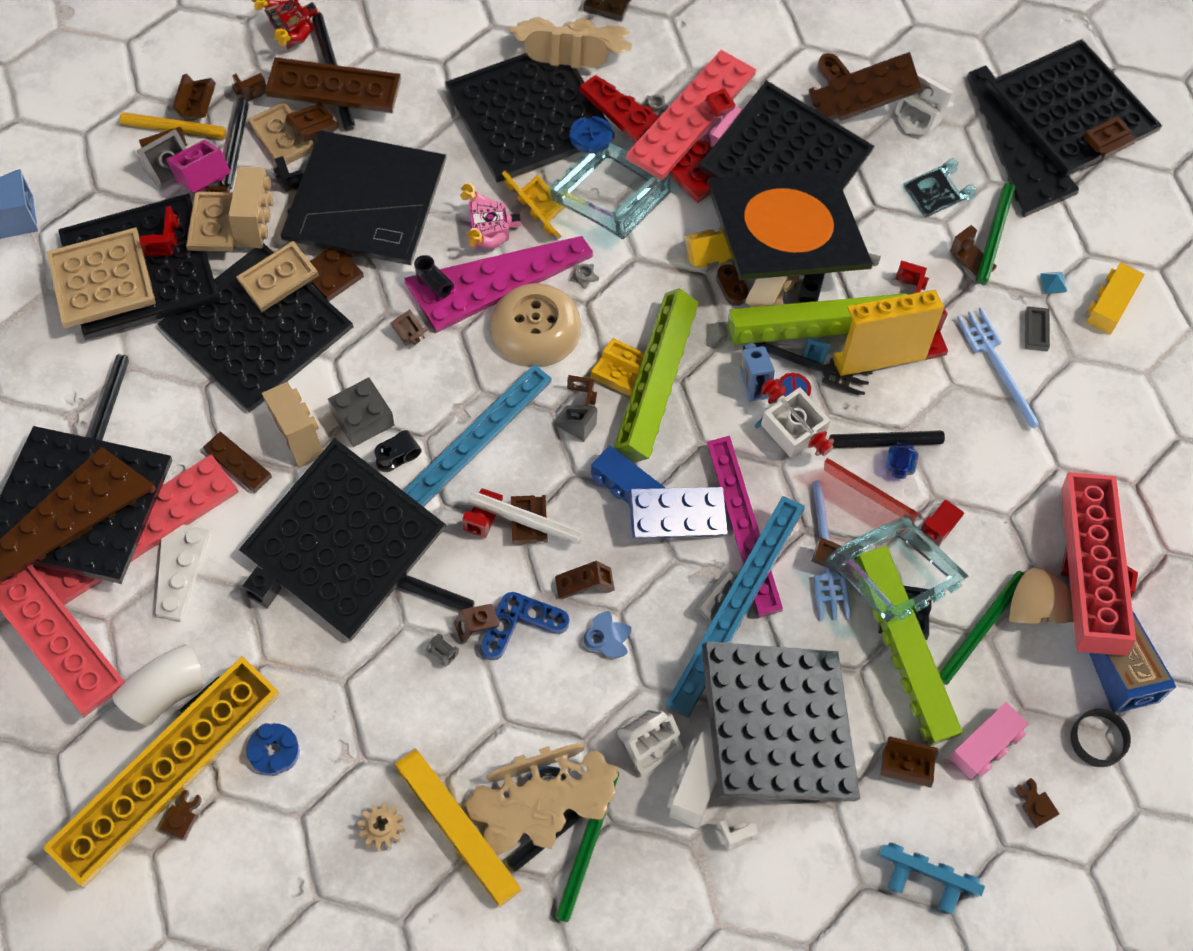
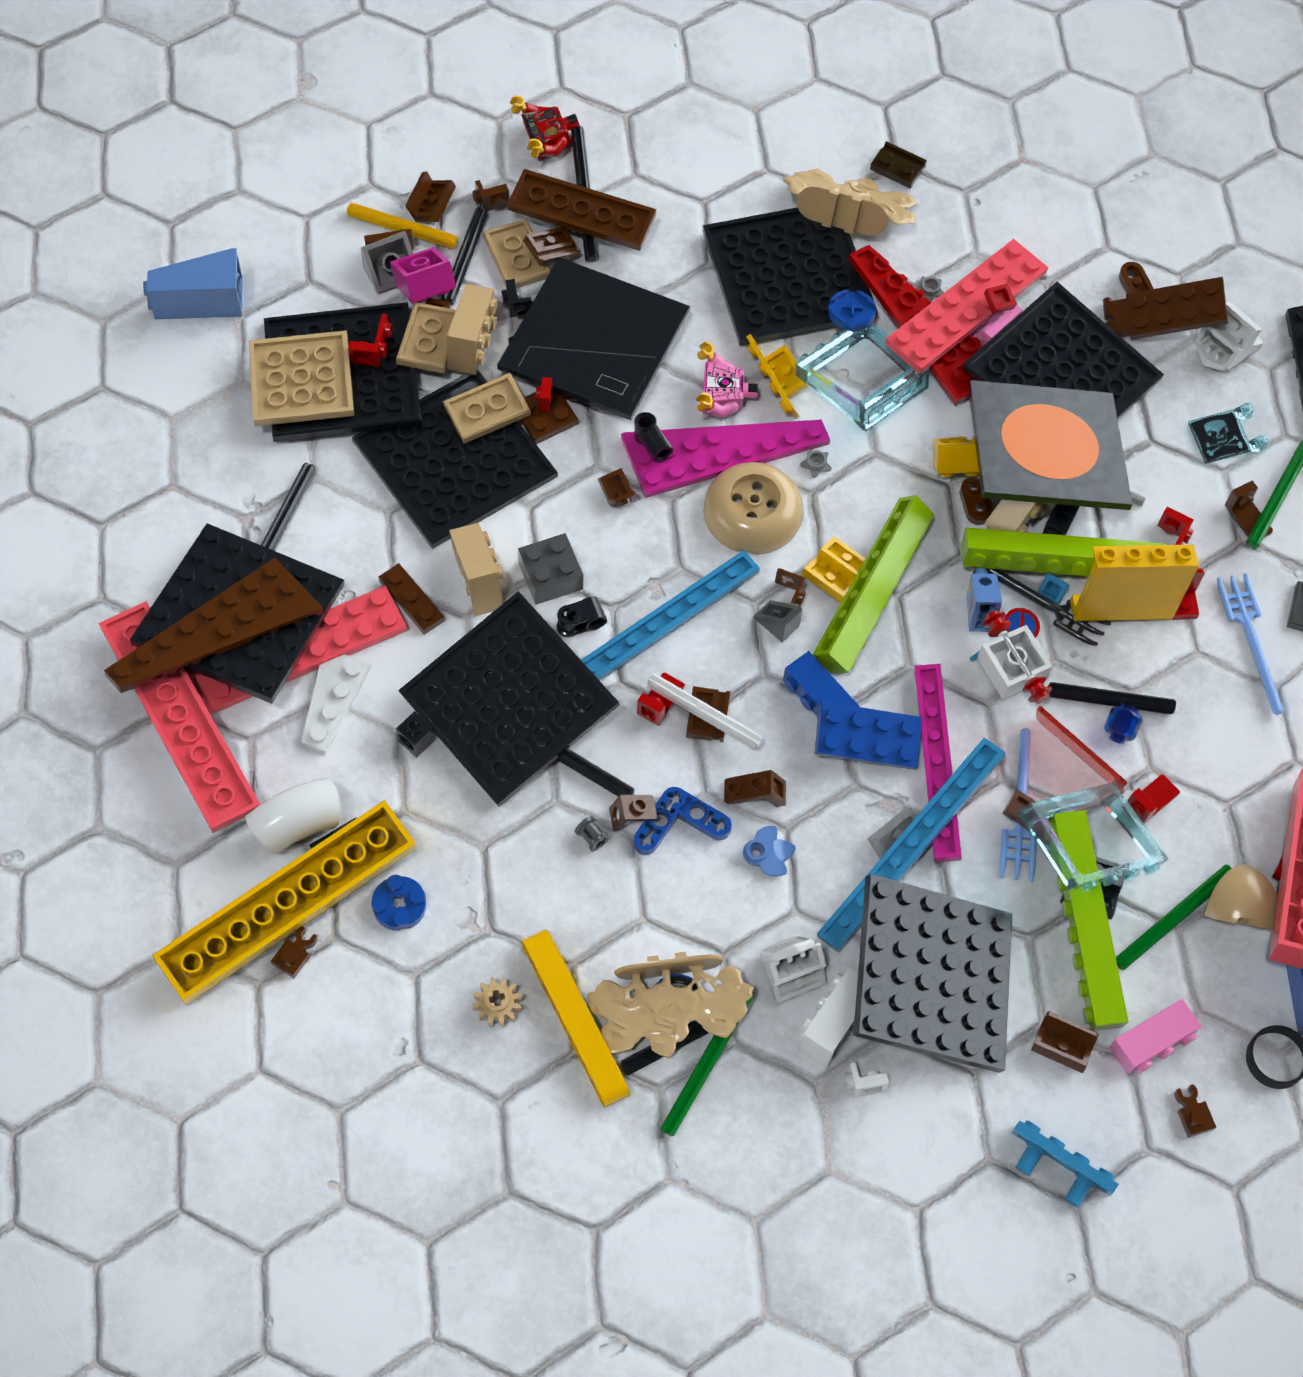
camera: 10 degrees right, 0 degrees up
(327, 254) = (544, 394): none -> red plate

